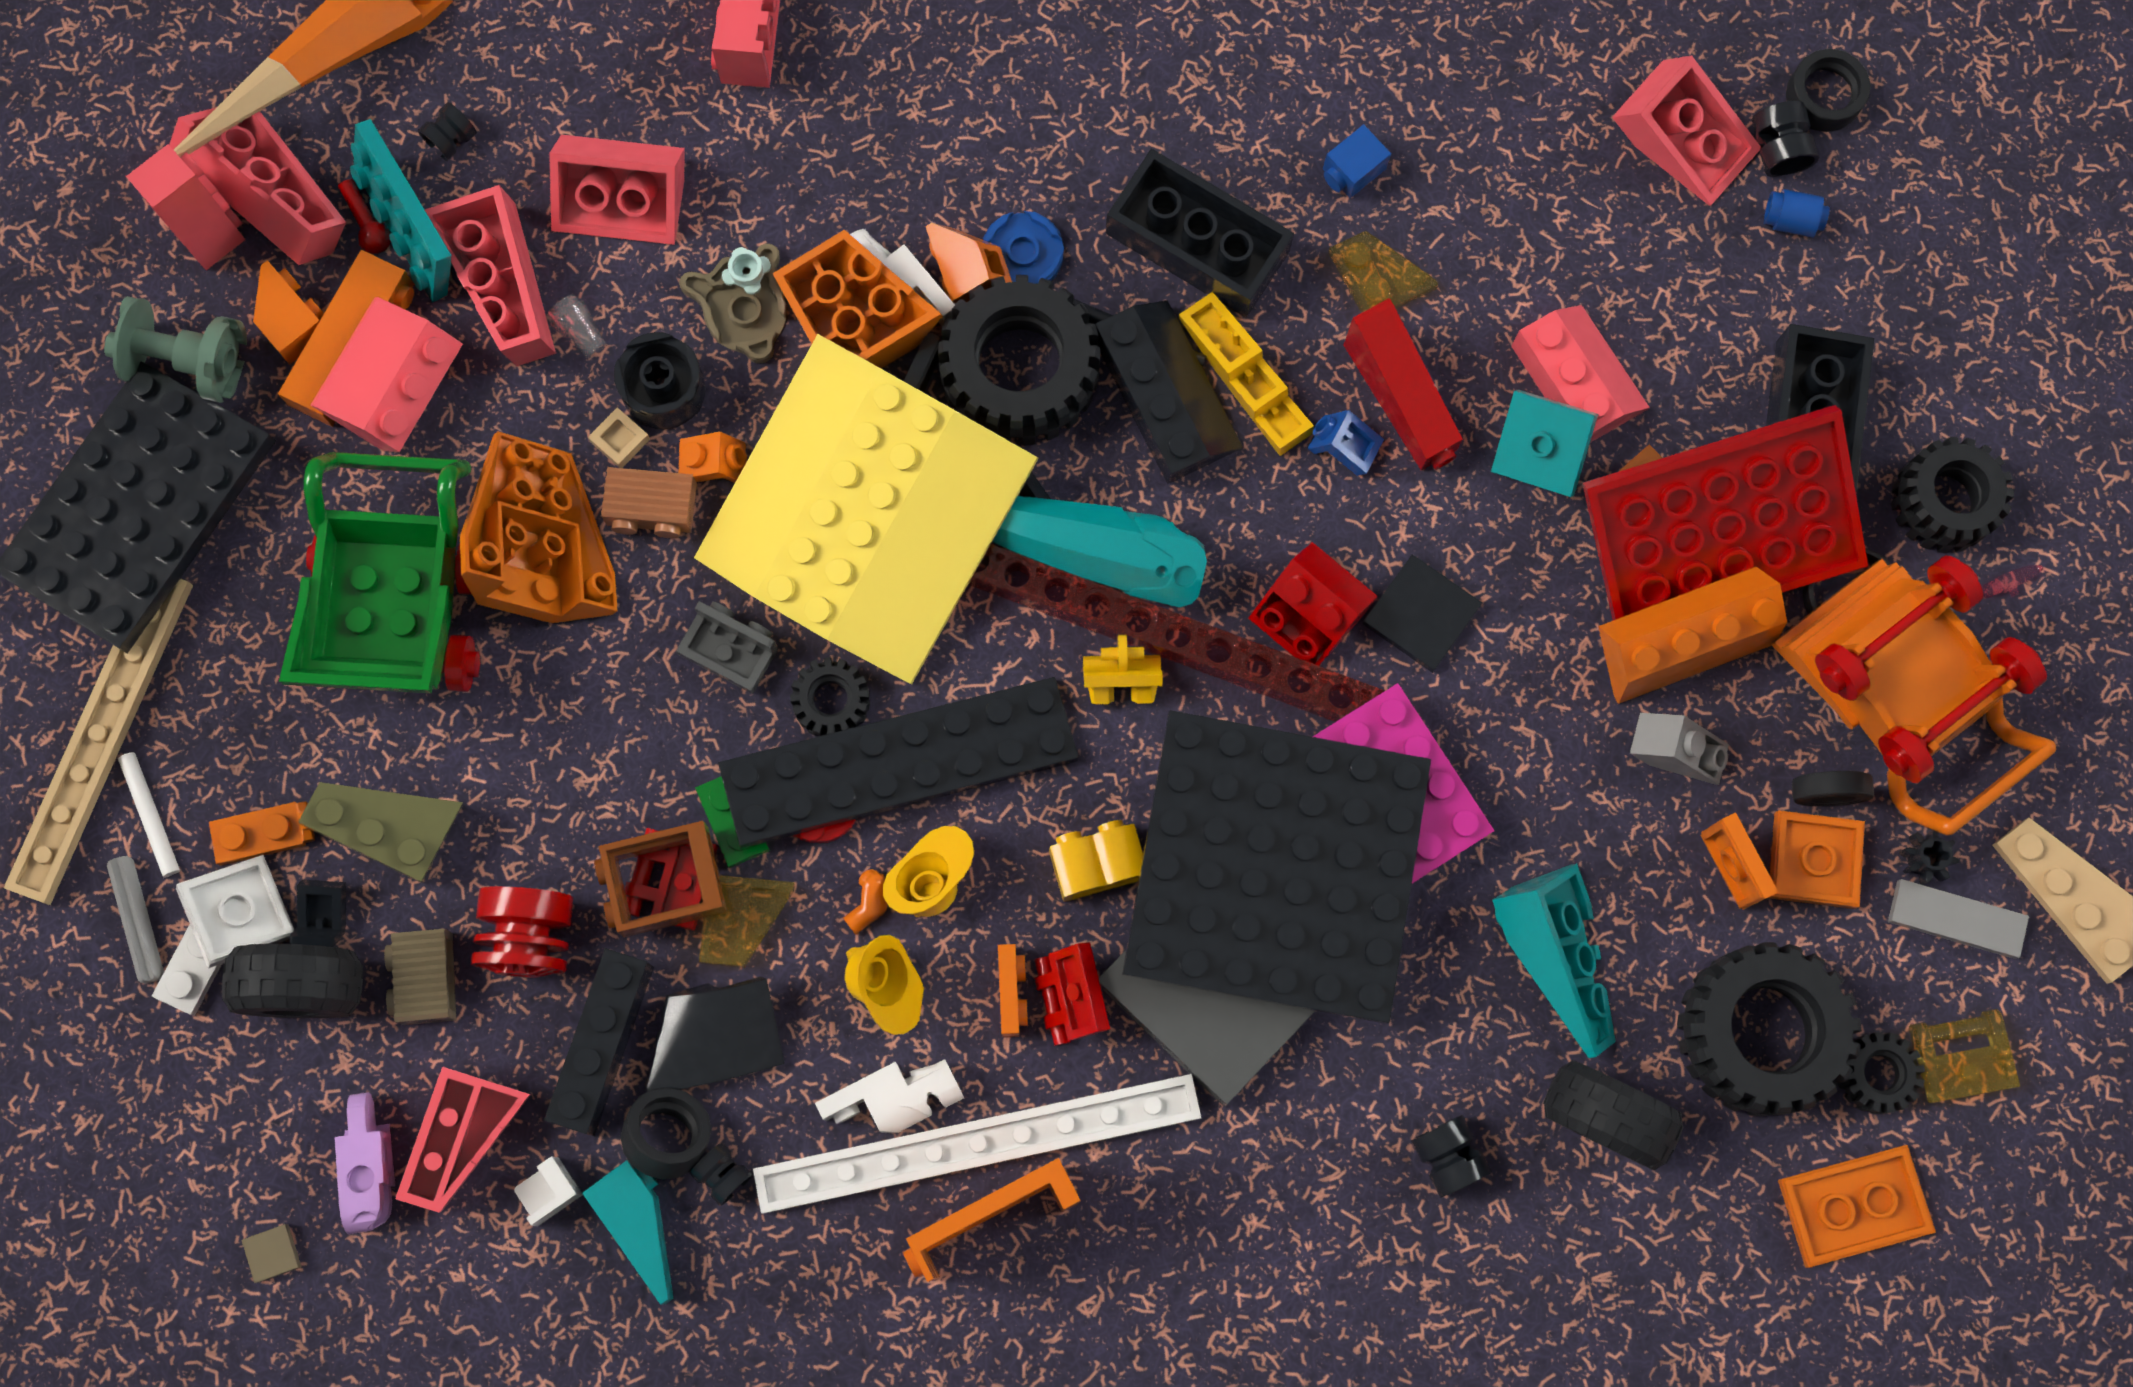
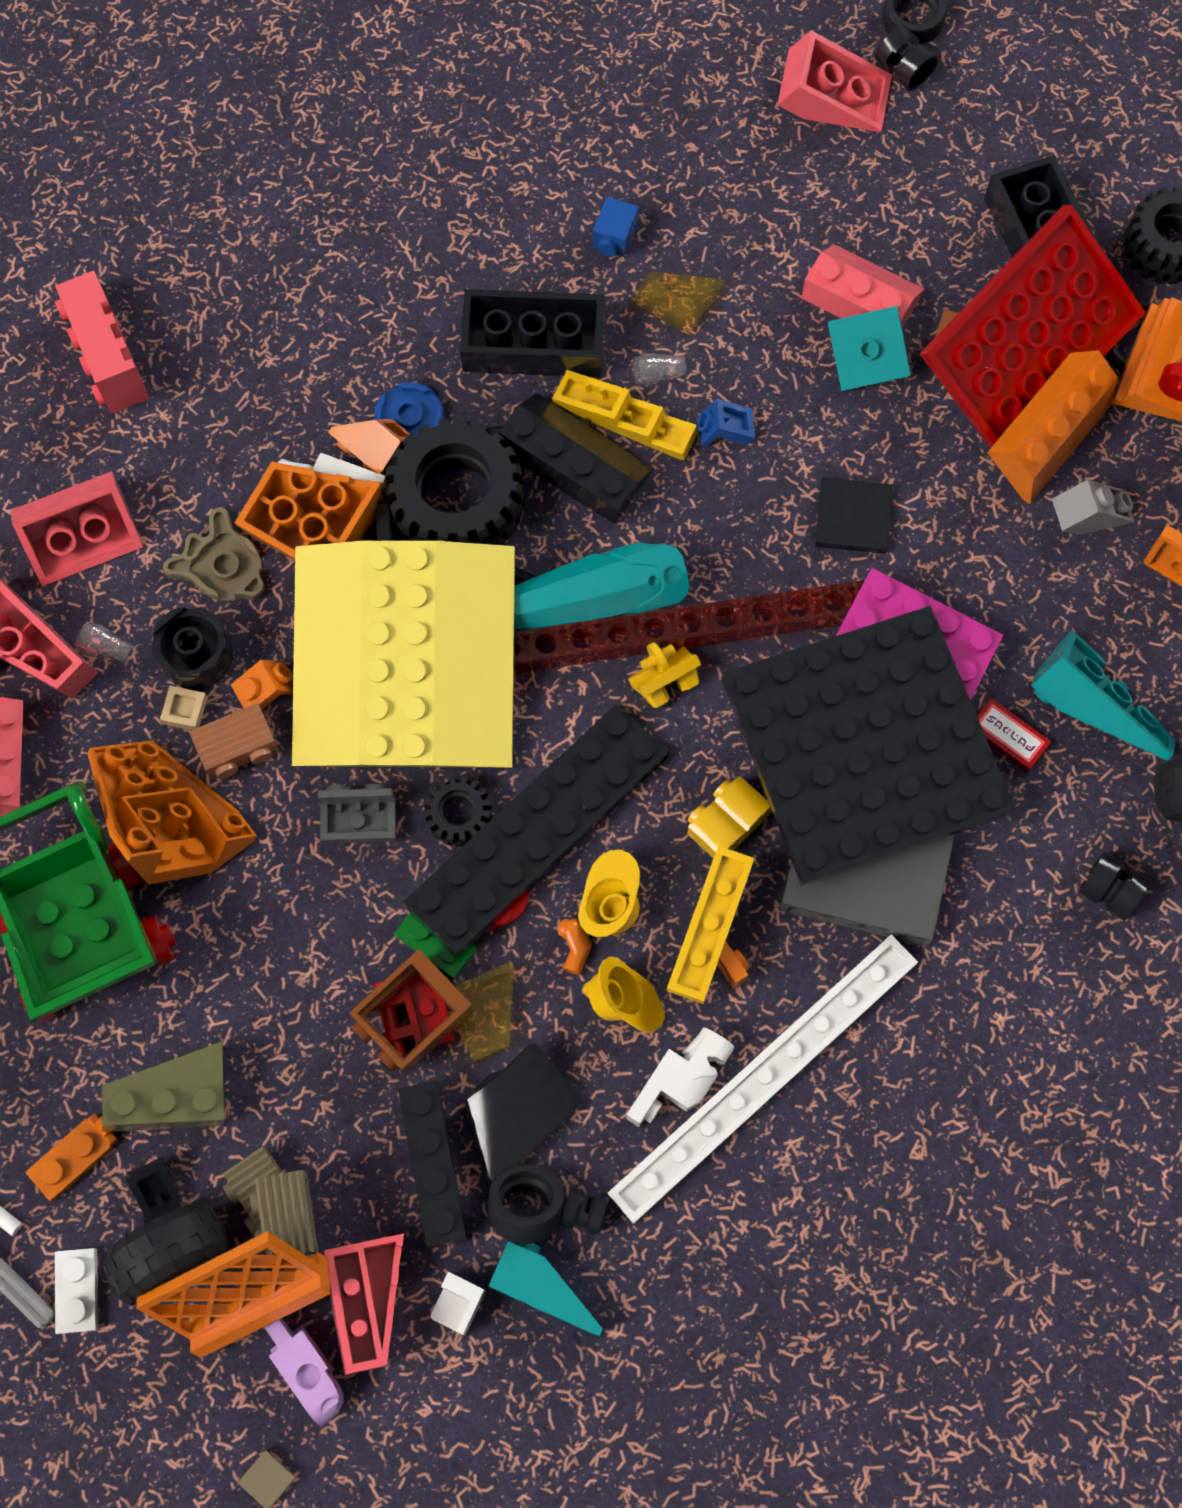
camera: 25 degrees left, 5 degrees down
(234, 909) = (84, 1227): white plate -> none
(341, 1076) = (242, 1308): none -> orange fence
(423, 1011) = (285, 1210): none -> dark tan brick
(522, 930) = (322, 1107): red wheel -> none
(741, 259) = (206, 525): light aqua plate -> none
(1008, 961) = (710, 924): none -> yellow plate
(1048, 1176) = (849, 1066): orange panel -> none
(1071, 994) = (774, 920): red plate -> none
(1310, 341) = (657, 368): none -> clear cone
(1312, 605) = (773, 551): red slope -> none
(1402, 385) = (743, 361): red slope -> none
(1443, 937) = (1011, 735): none -> tile
(1796, 212) = (944, 104): blue brick -> none

